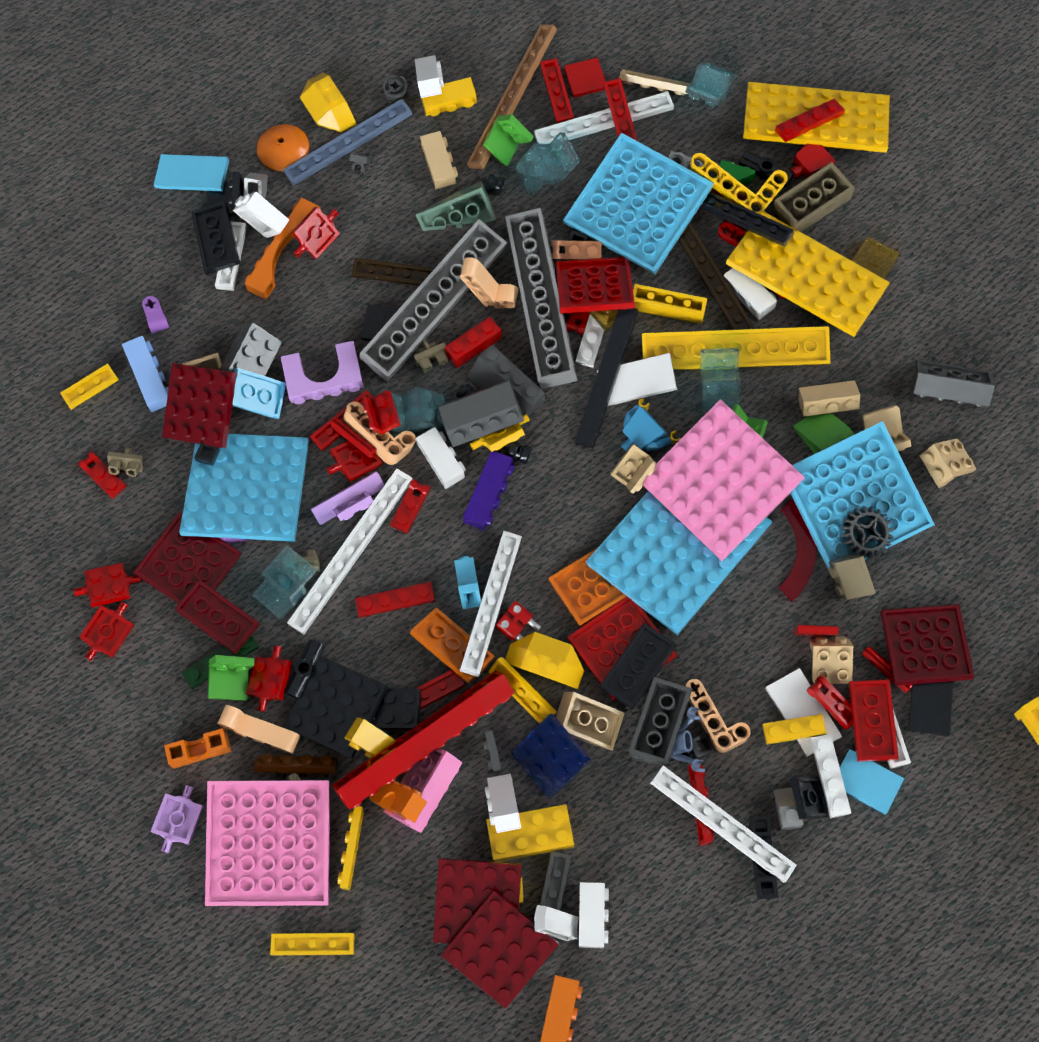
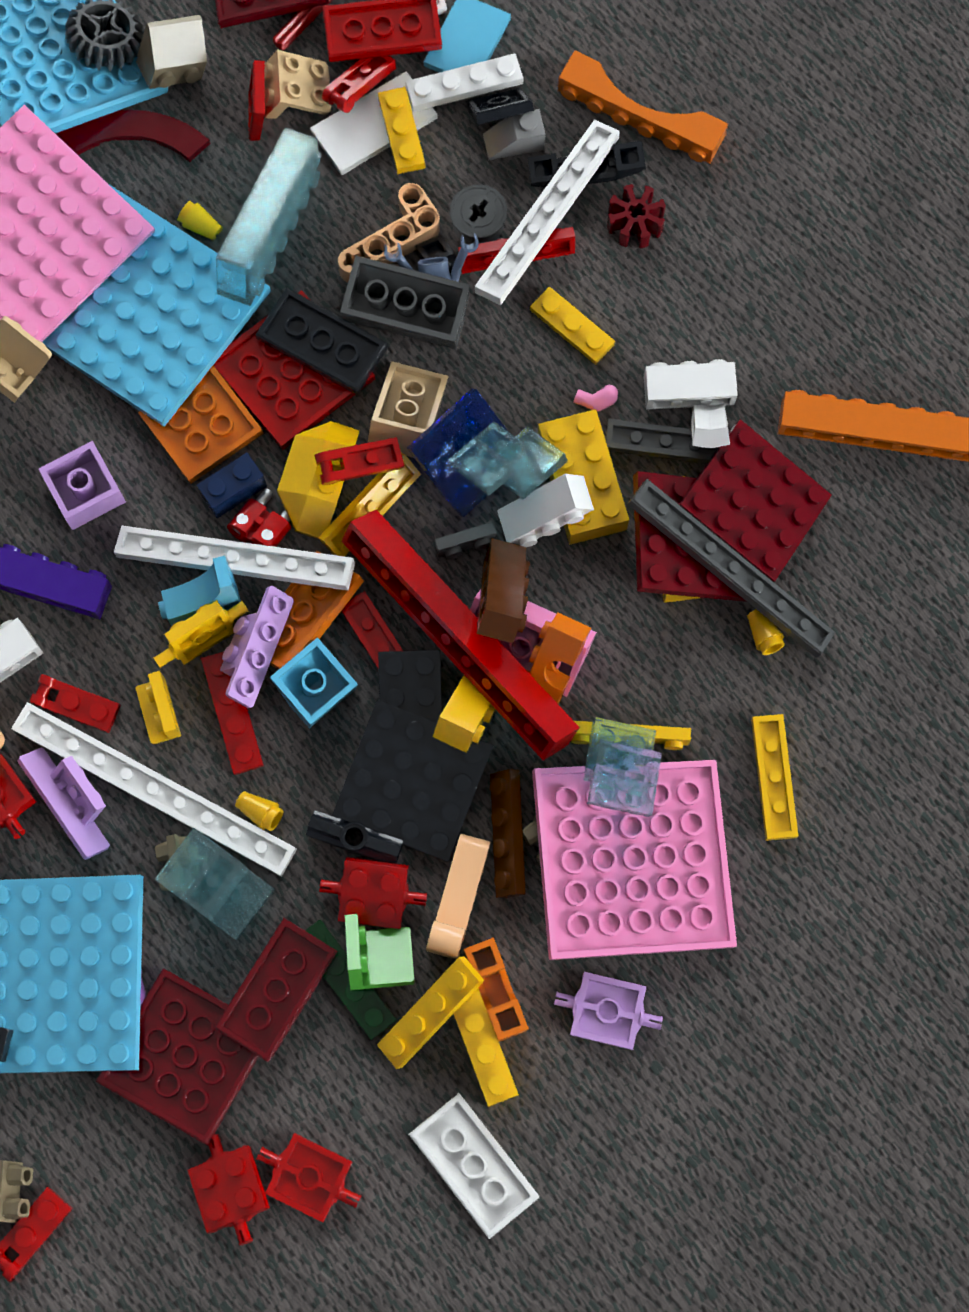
camera: 100 degrees left, 5 degrees up
(98, 729) = (474, 1165): none -> white tile
(153, 741) = (484, 1050): none -> yellow brick
(188, 706) = (430, 1012): none -> yellow plate
(319, 834) = (622, 767): none -> clear light blue bracket
(329, 613) = (259, 810): none -> yellow cone
(399, 555) = (158, 709): none -> yellow bracket
(403, 648) = (313, 682): none -> medium azure slope
(410, 949) = (765, 633): none -> yellow cone
(430, 612) = (254, 646): none -> lavender bracket
(442, 578) = (199, 632): none -> yellow plate
(447, 768) = (503, 591): none -> reddish brown brick
(450, 925) = (731, 568): none -> dark grey tile
(535, 778) = (510, 460): none -> clear light blue bracket
(542, 604) = (232, 485): none -> dark blue brick
(545, 683) = (360, 460): none -> red plate
(548, 512) = (82, 485): none -> lavender brick
(587, 852) = (600, 400): none -> bright pink arm
(644, 838) = (572, 325): none -> yellow plate
(723, 632) = (268, 217): none -> clear light blue brick
(729, 887) = (649, 218): none -> dark red gear
(730, 766) = (472, 202): none -> dark grey piece
(732, 591) = (198, 220): none -> yellow cone
(786, 939) = (693, 132): none -> orange arch

